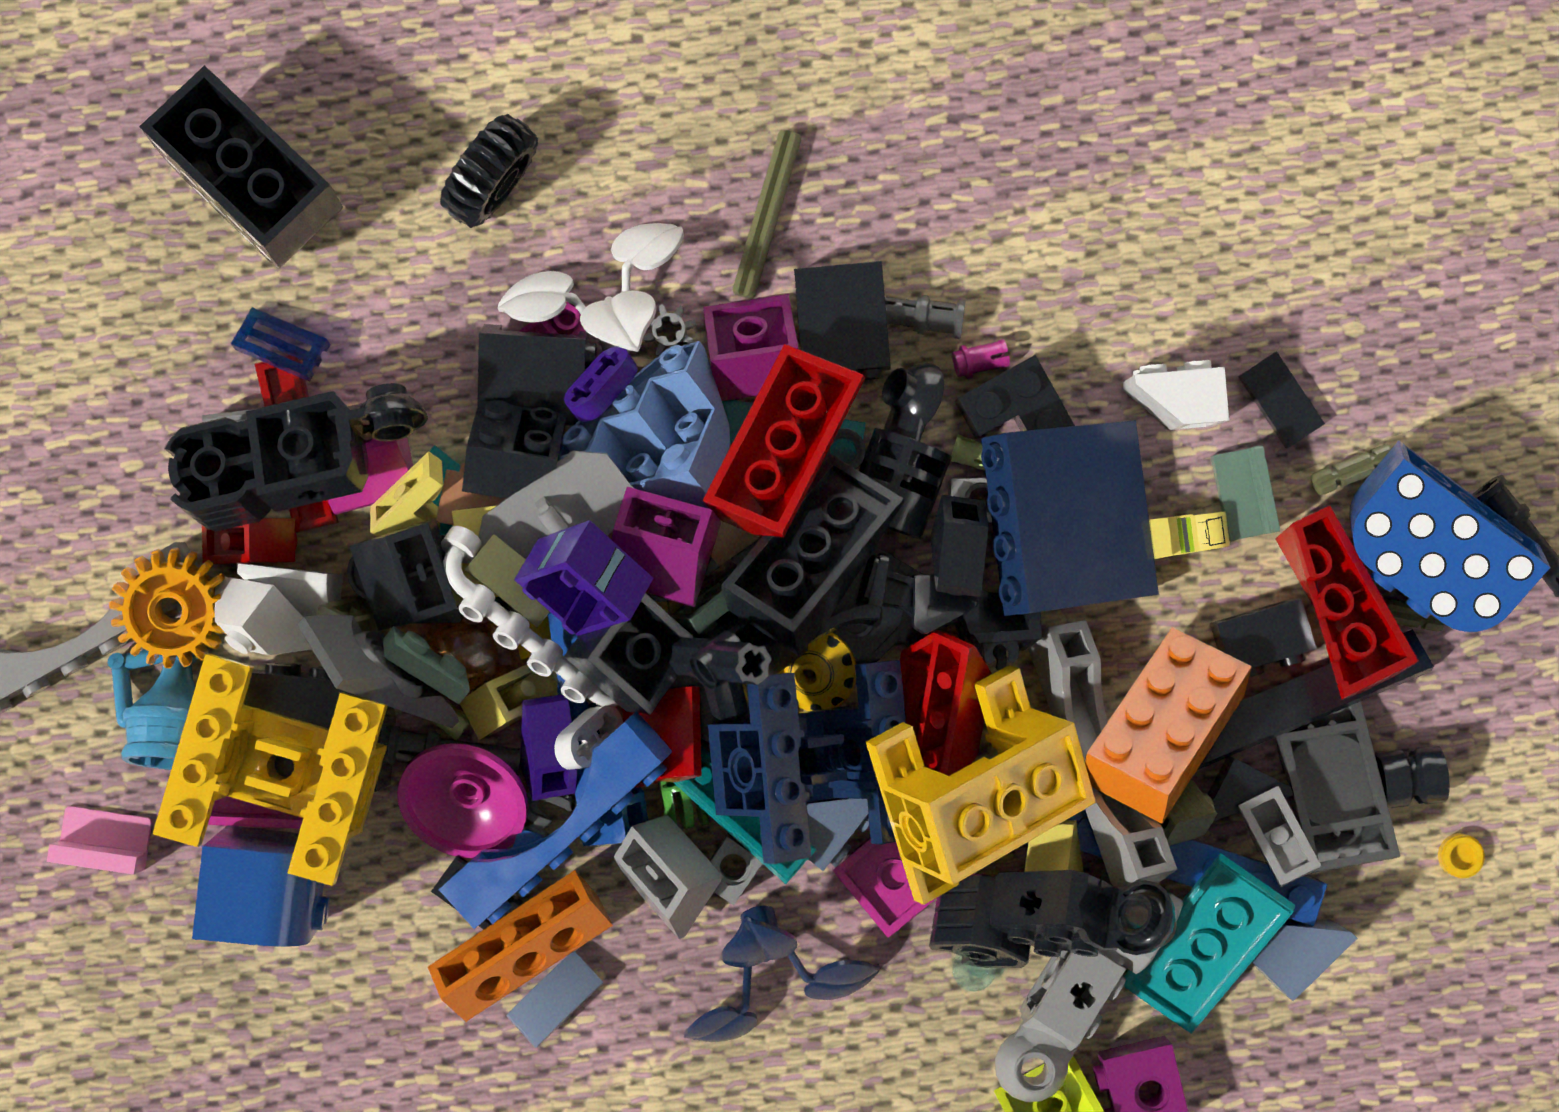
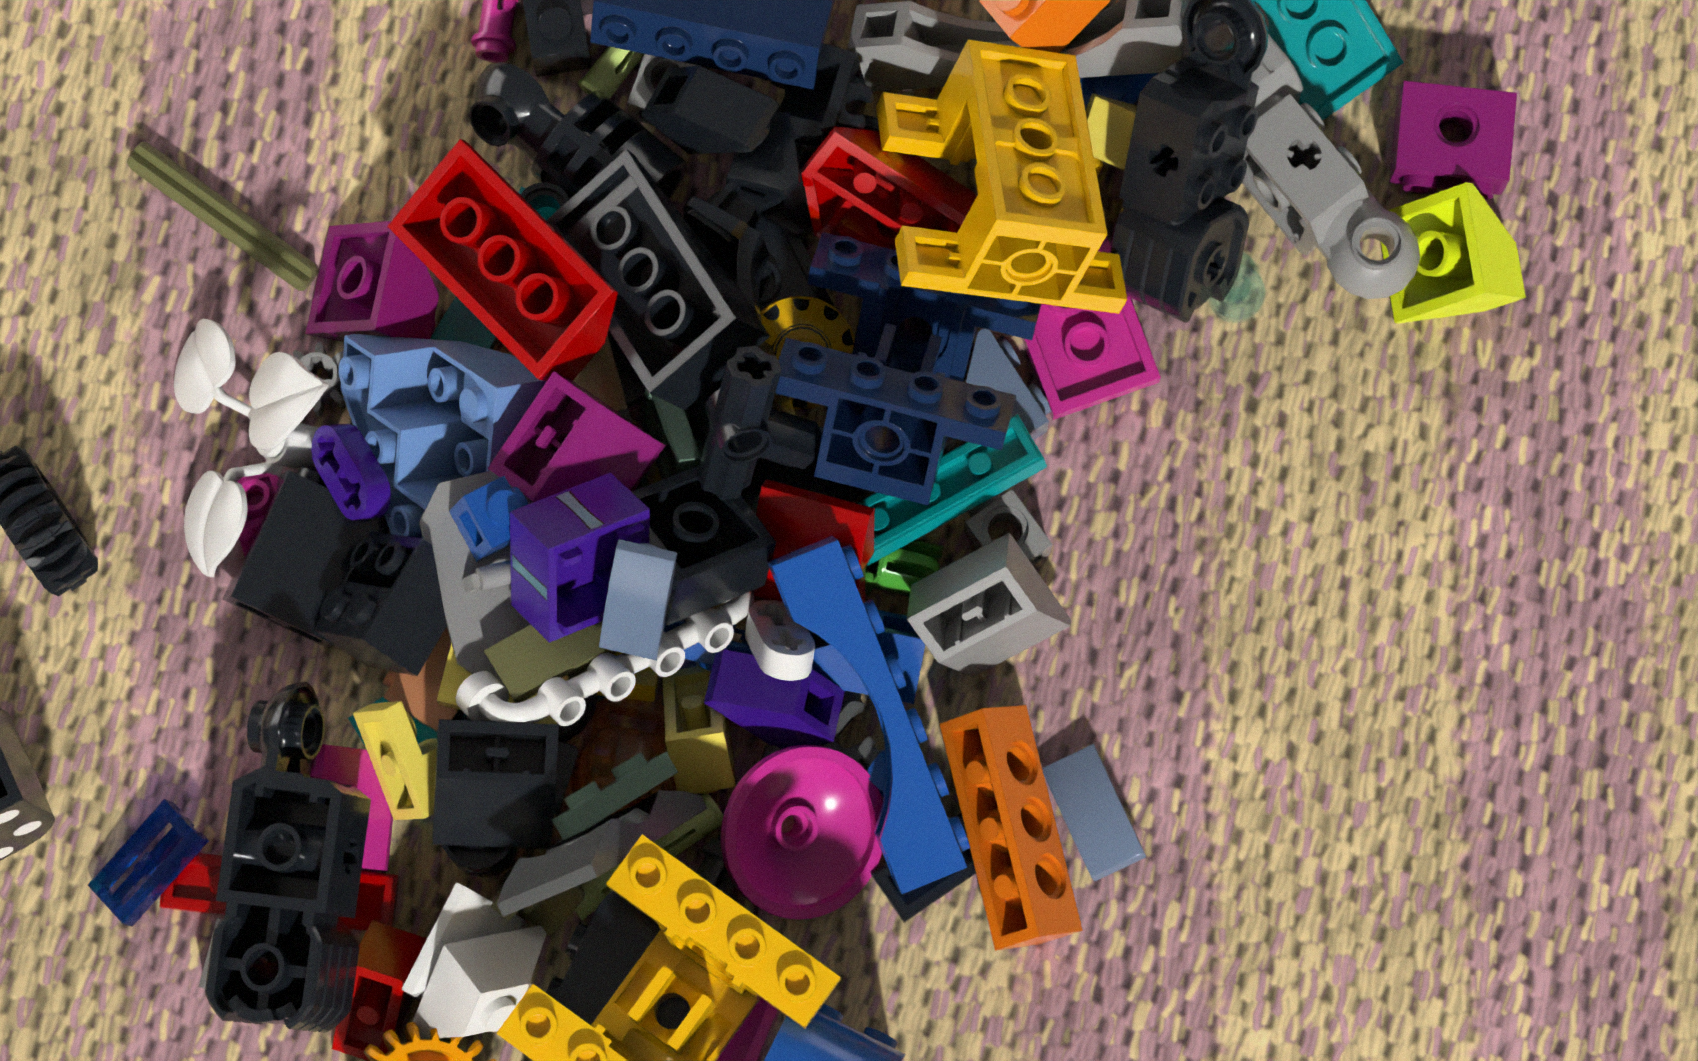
camera: 70 degrees left, 10 degrees down
(565, 634) = (637, 599): none -> sand blue slope
(592, 501) = (485, 517): none -> blue brick
(758, 942) = (1103, 523): dark blue plant -> none
(844, 316) = (374, 157): black panel -> none
(926, 315) = (414, 77): dark grey pin -> none

